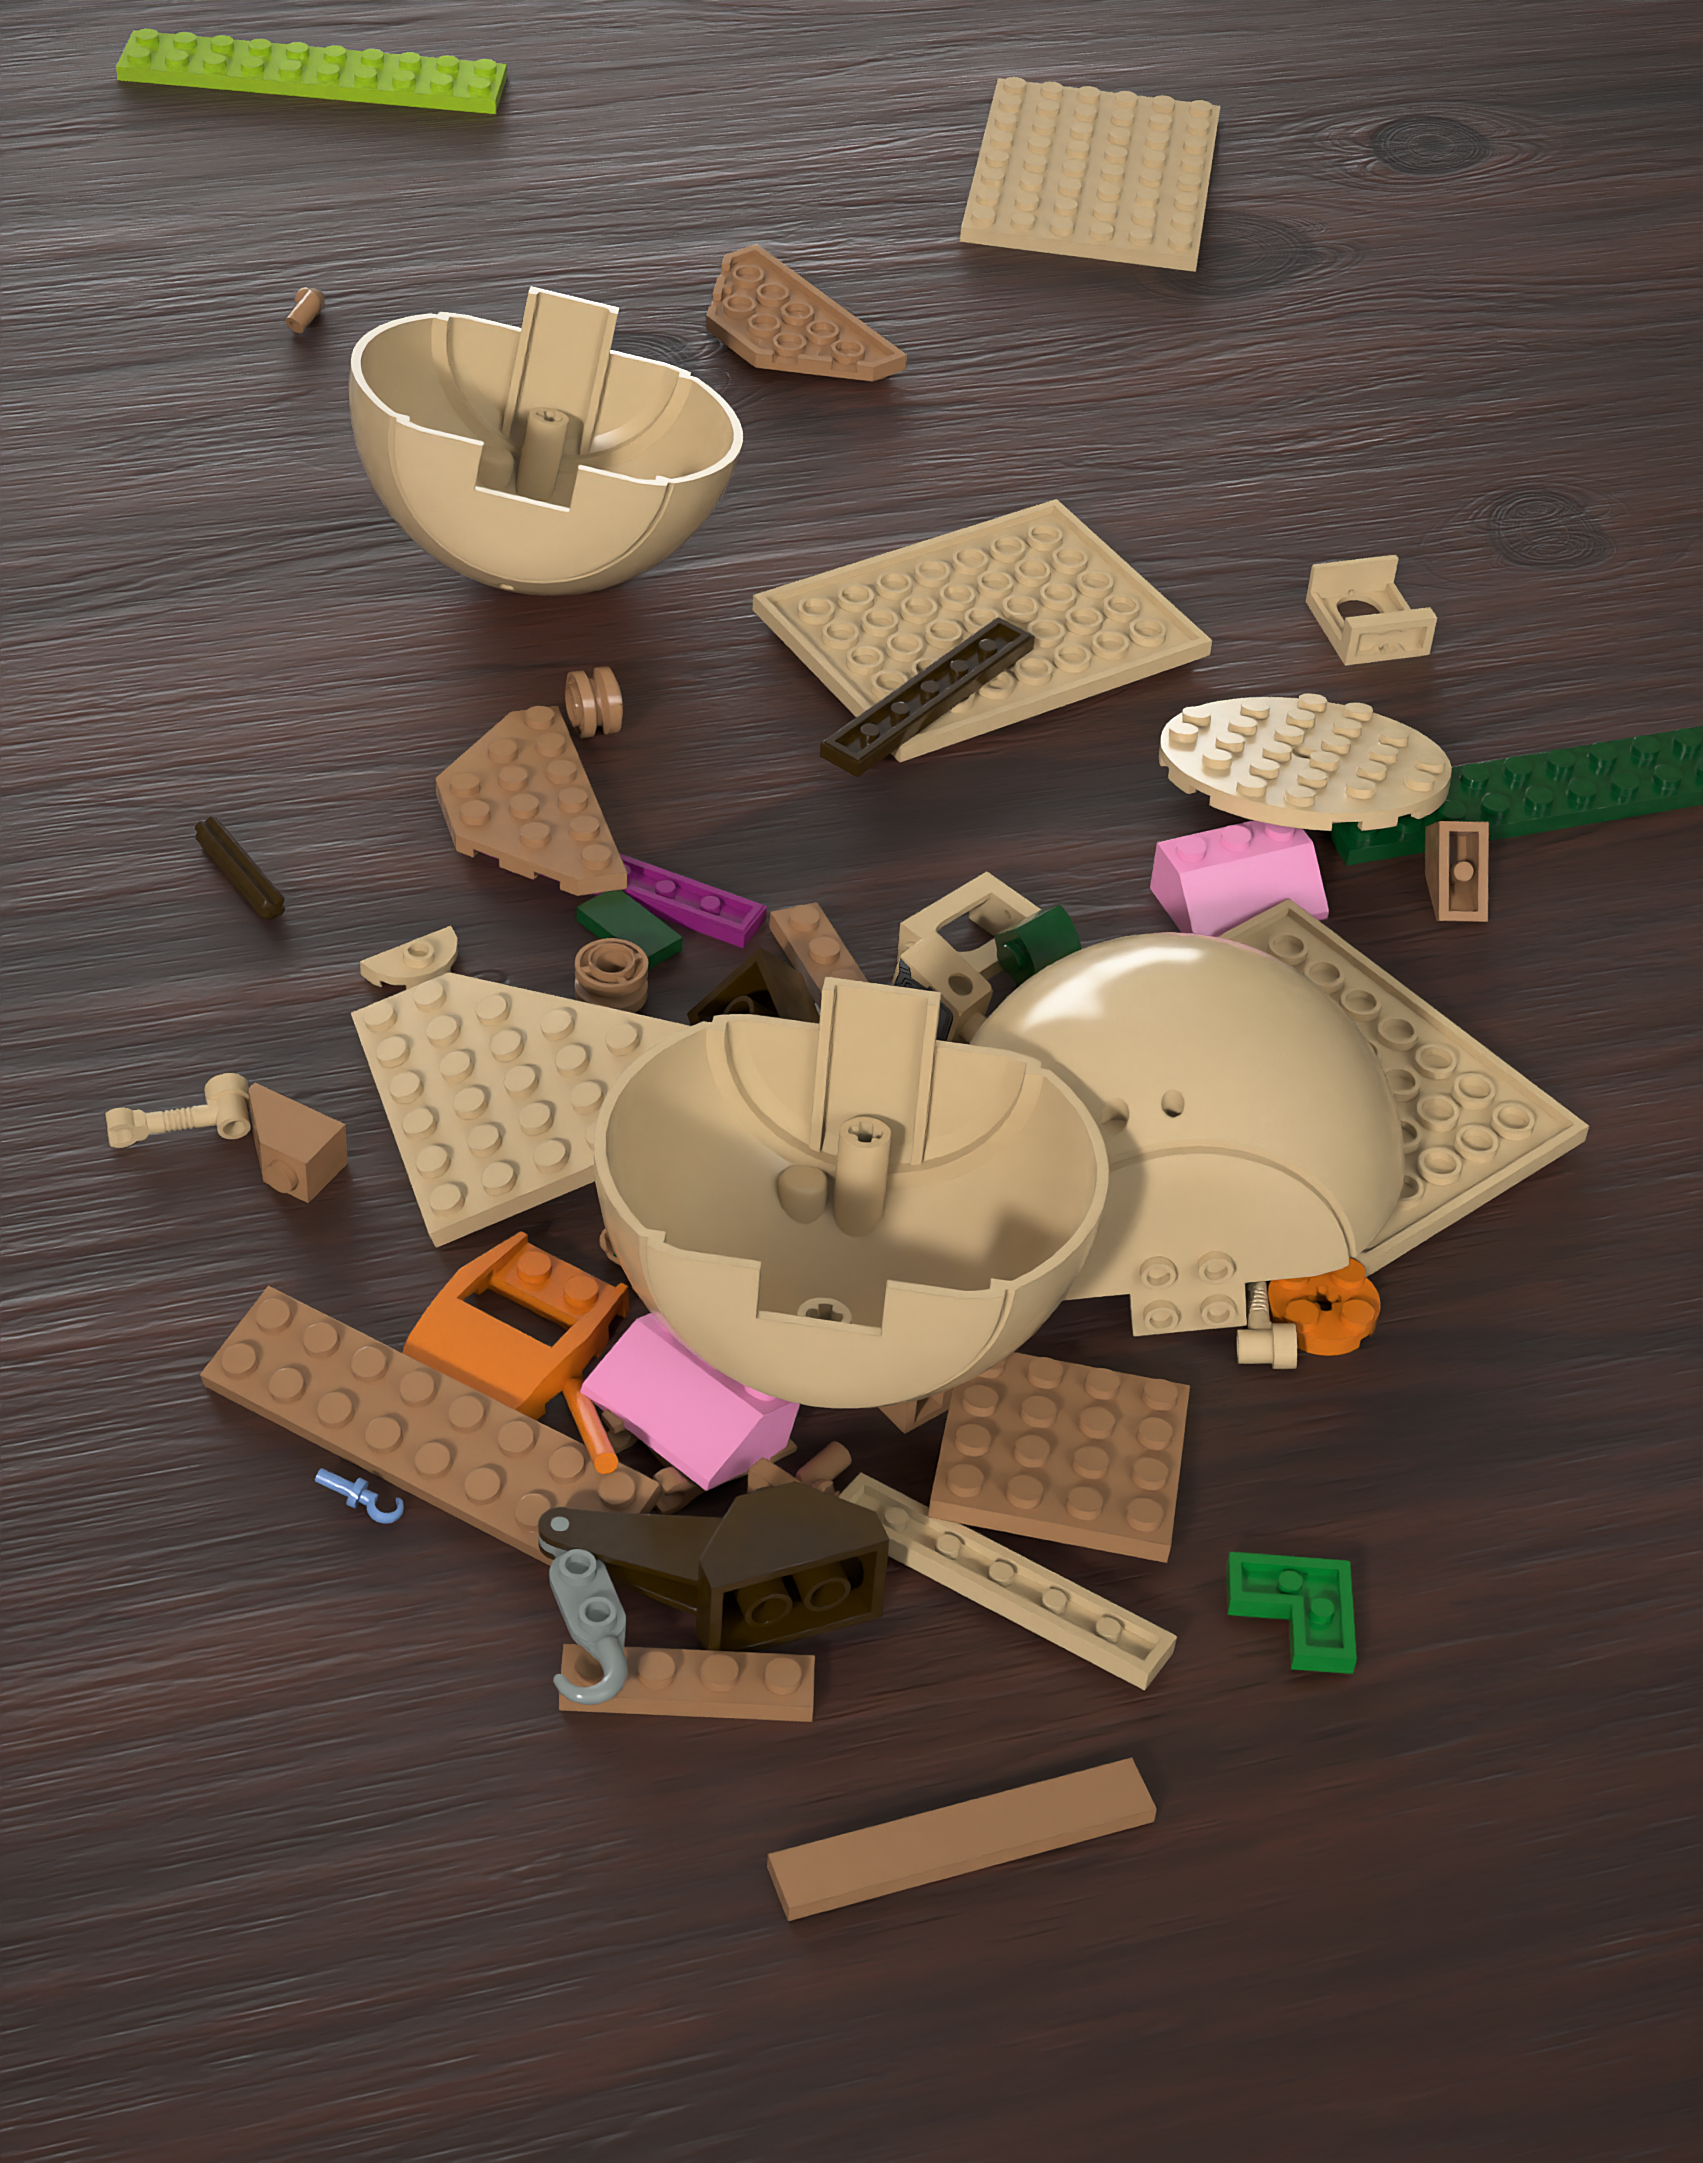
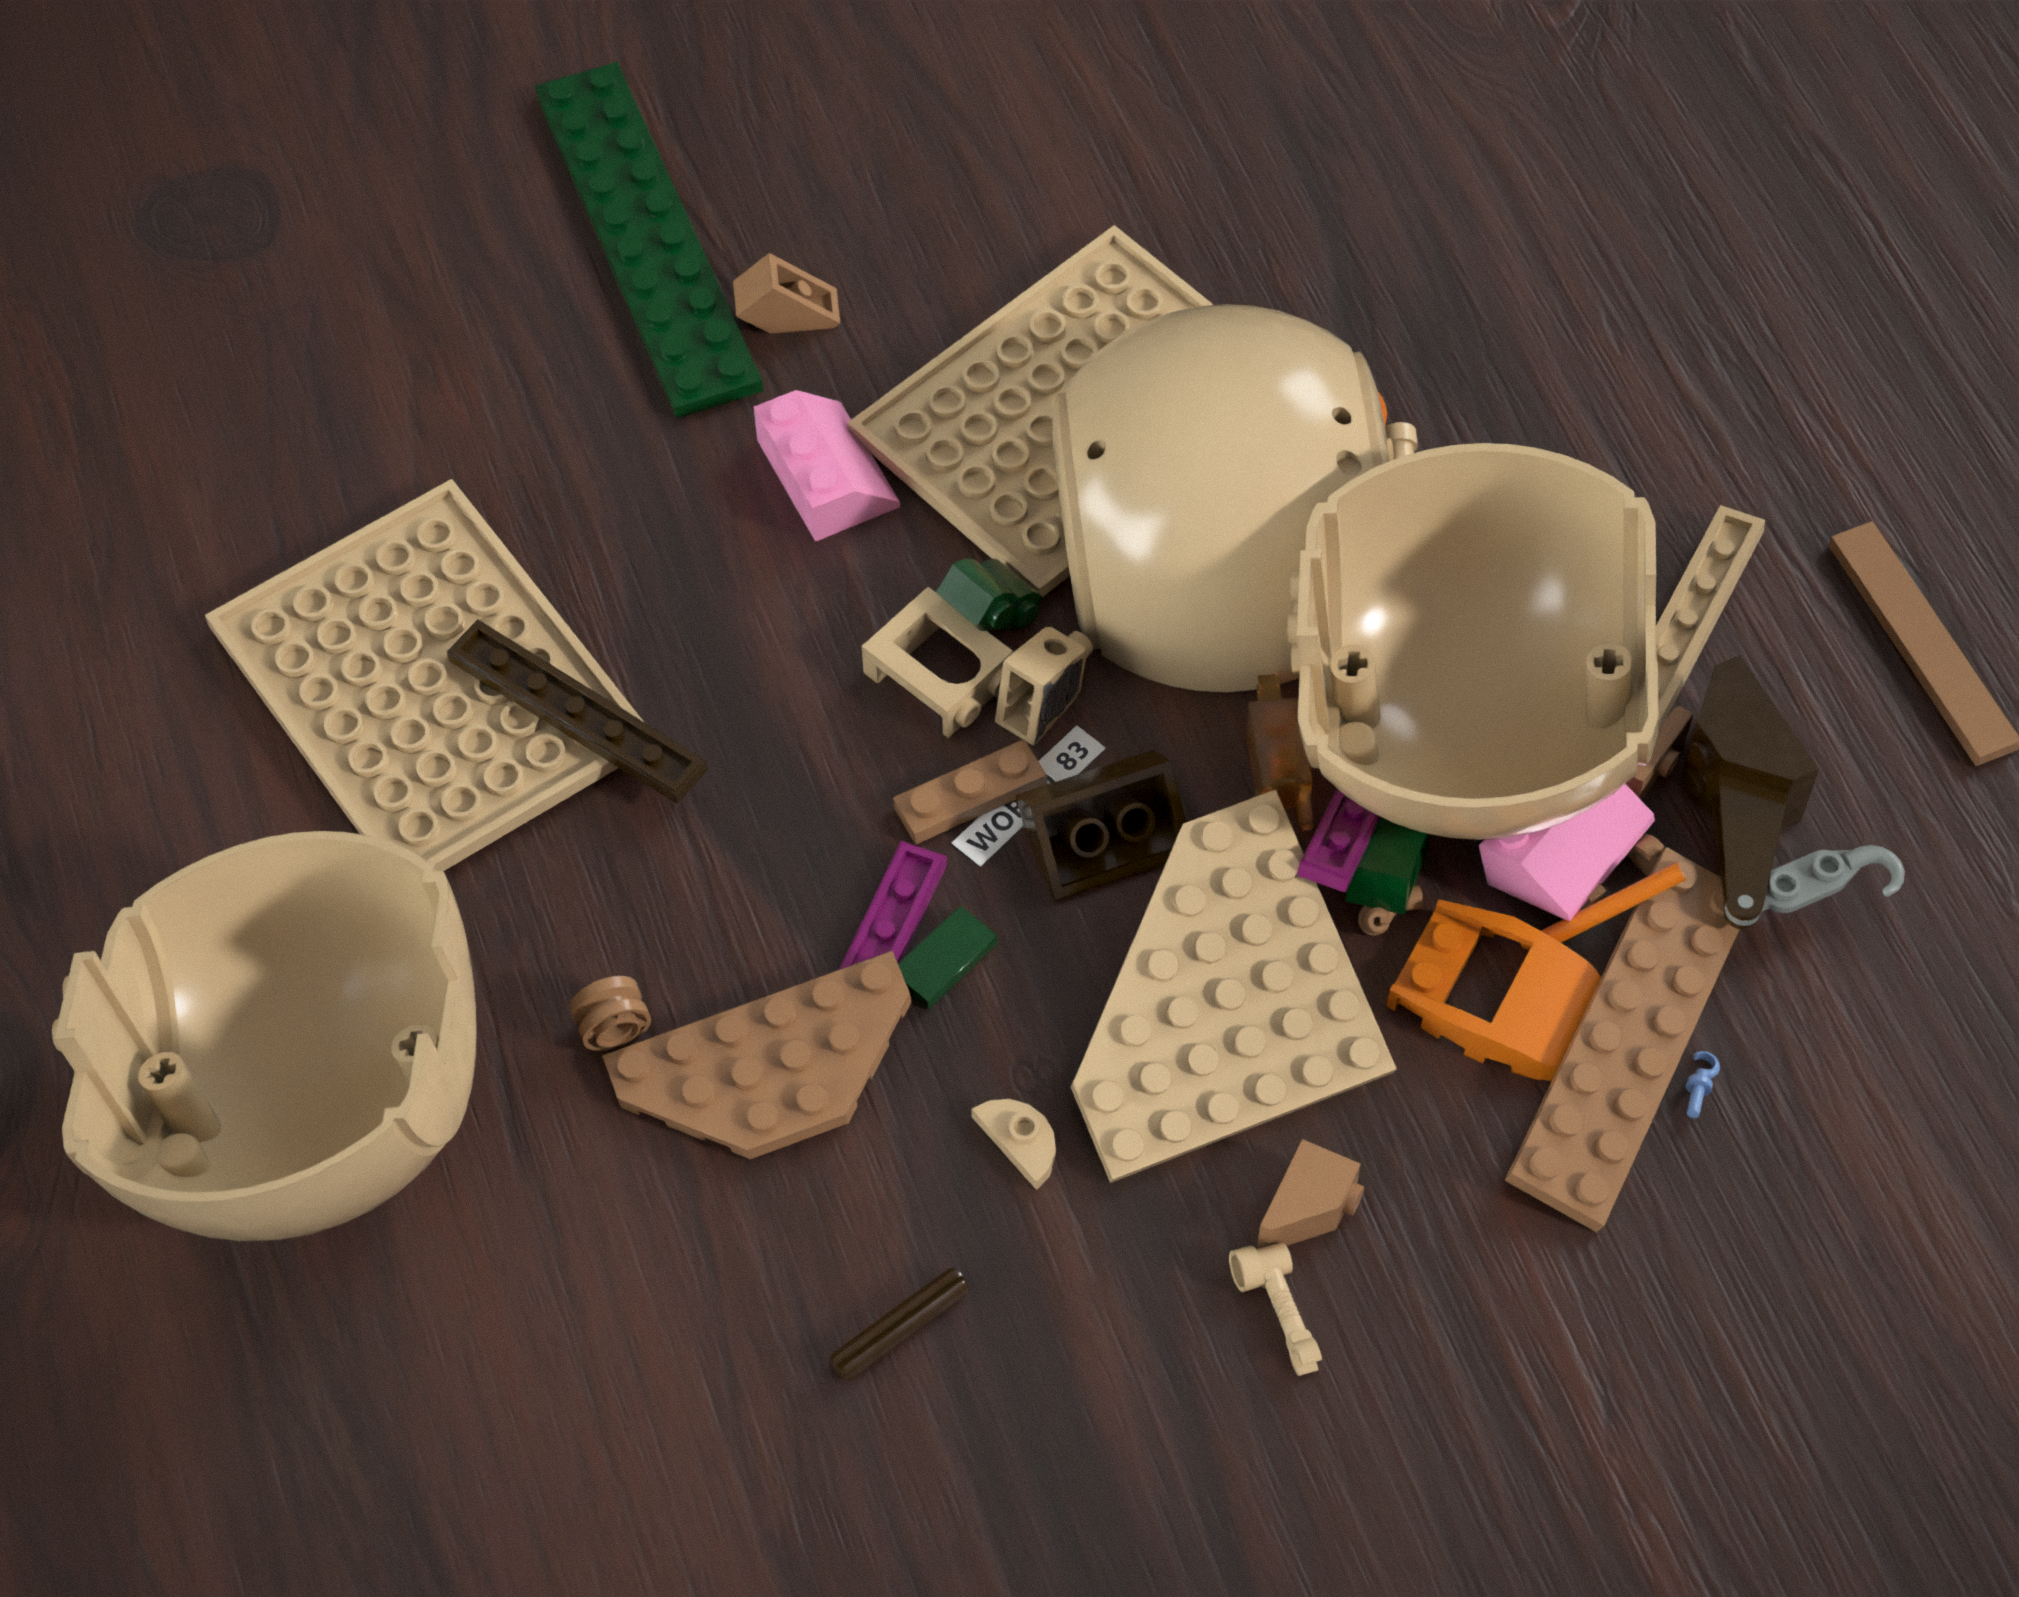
camera: 90 degrees left, 15 degrees up
(612, 975) = (1036, 936): medium nougat wheel -> none
(700, 1683) = (1832, 825): medium nougat plate -> none
(1305, 762) = (643, 460): tan plate -> none
(1309, 1594) = (1657, 424): green plate -> none
(1375, 637) = (348, 343): tan panel -> none

